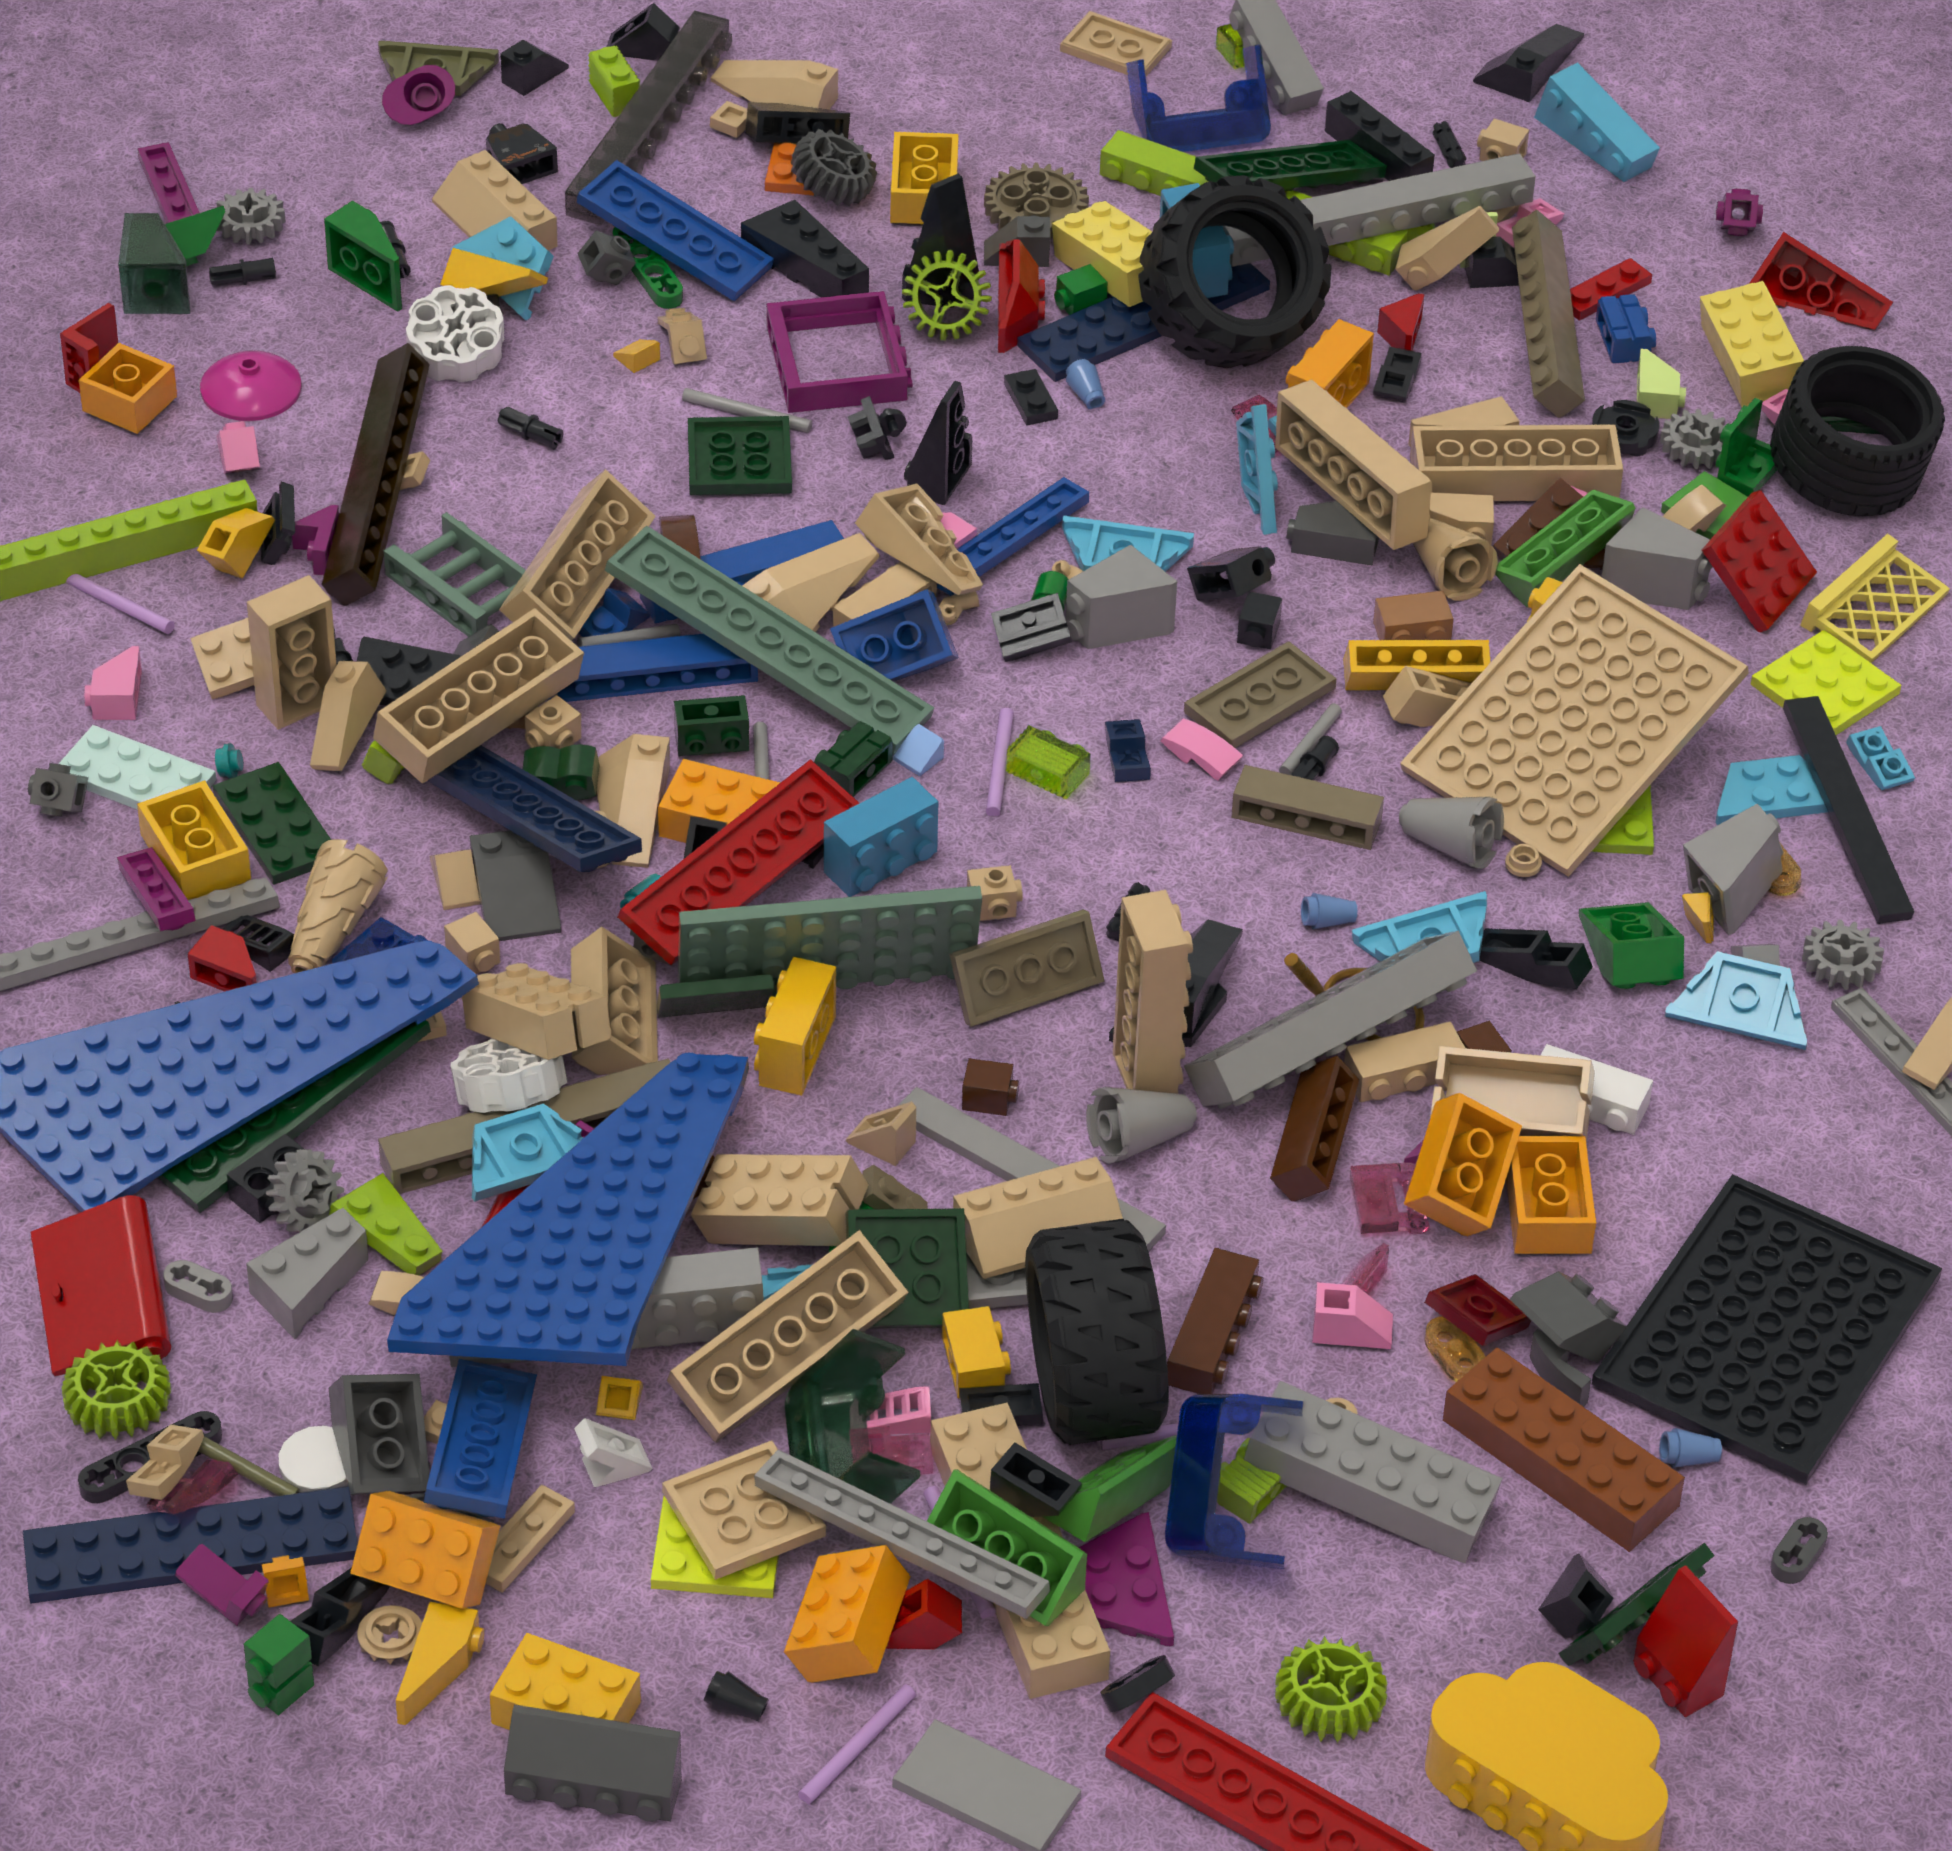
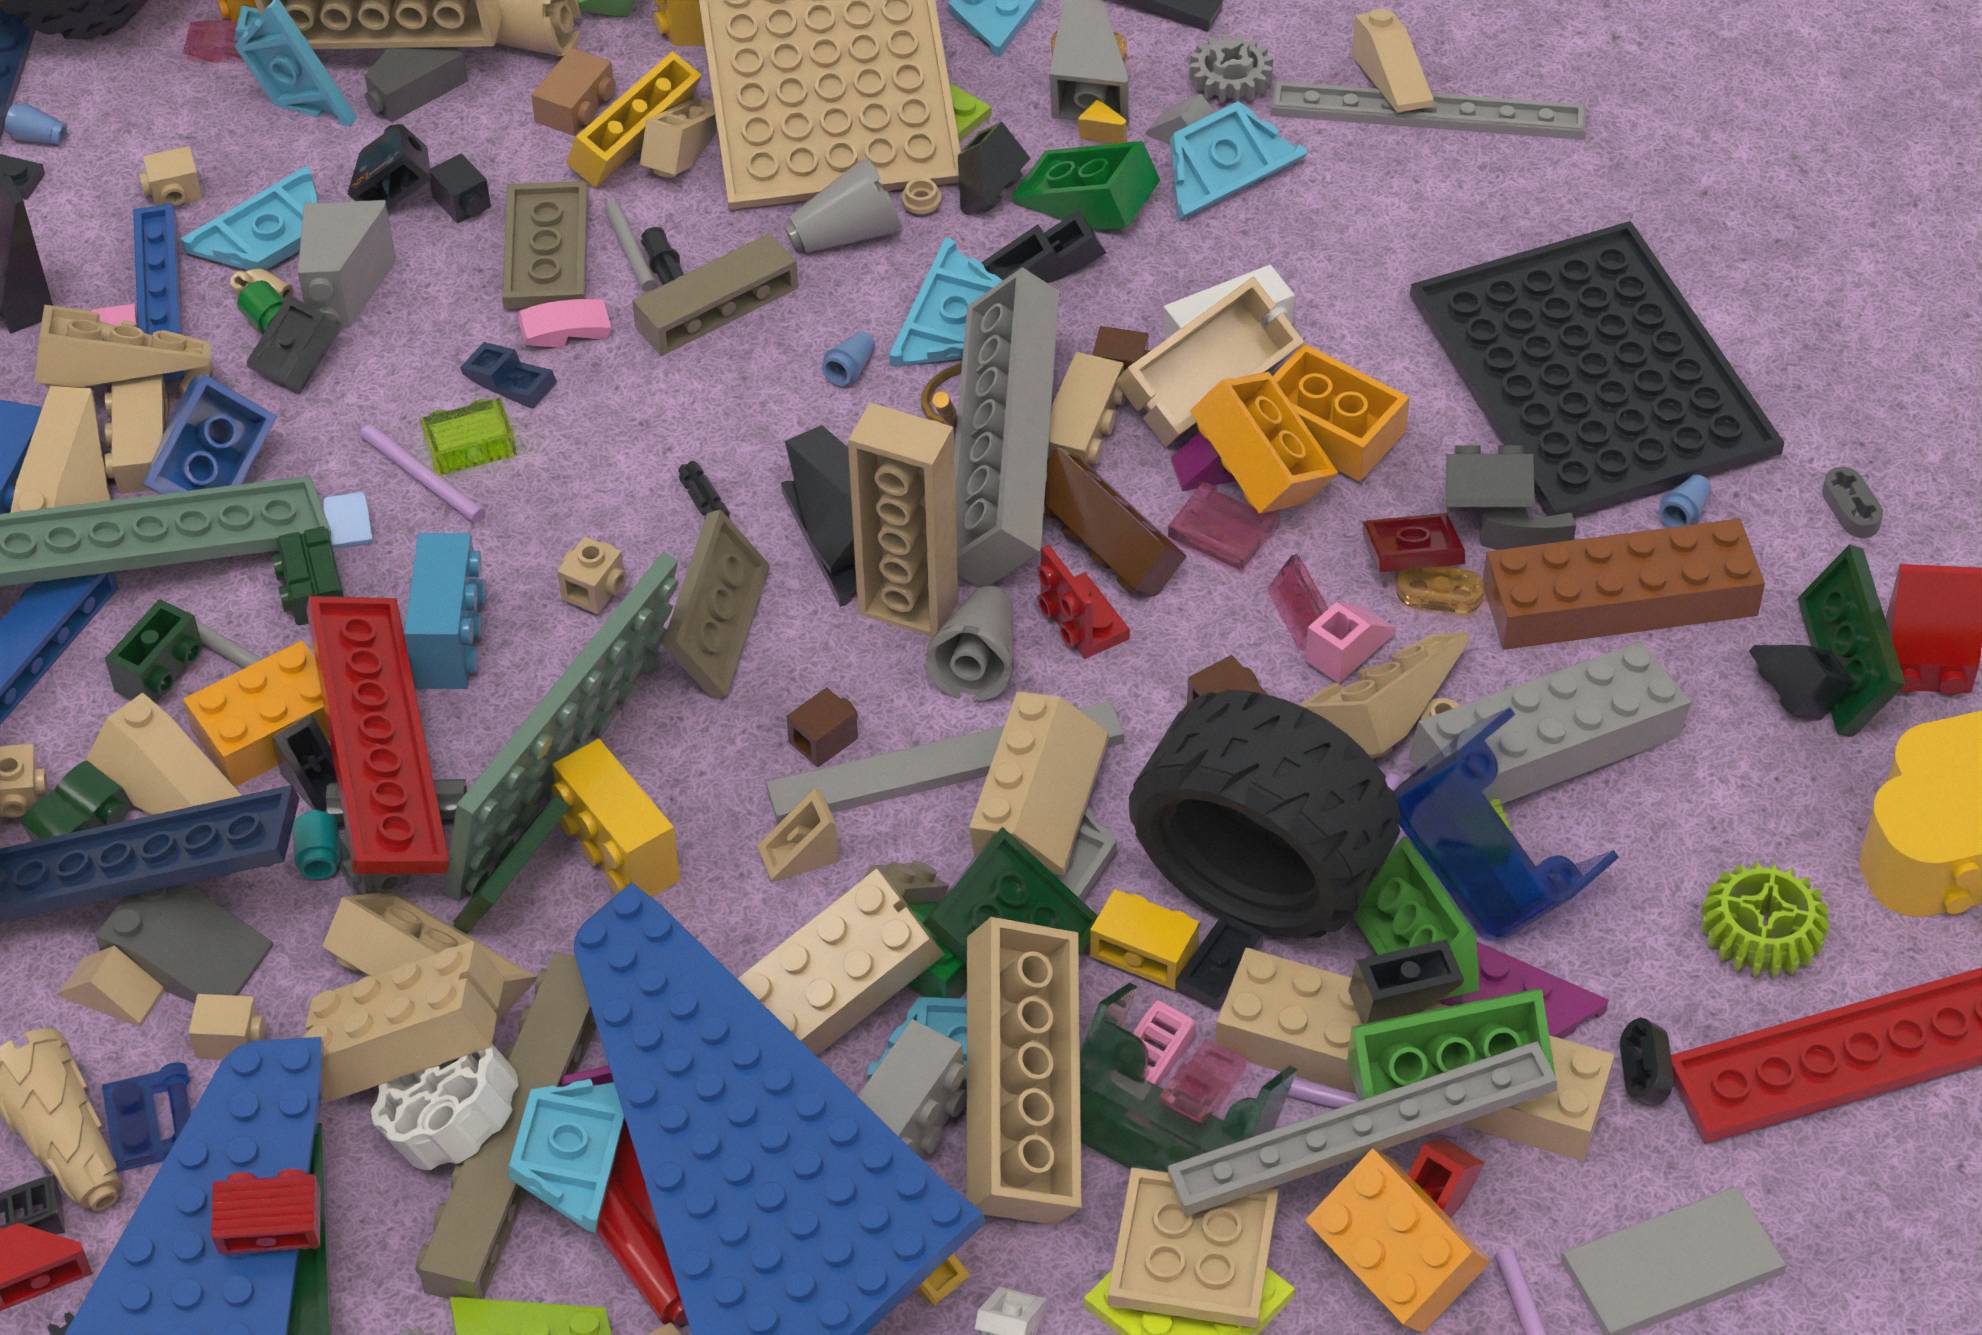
camera: 50 degrees left, 5 degrees up
(328, 1028) = (266, 1212): none -> red brick
(1112, 477) = (171, 177): none -> tan brick
(1225, 1162) = (1078, 607): none -> red bracket
(1321, 1373) = (1390, 696): none -> tan wedge
(1583, 874) = (988, 166): none -> black slope

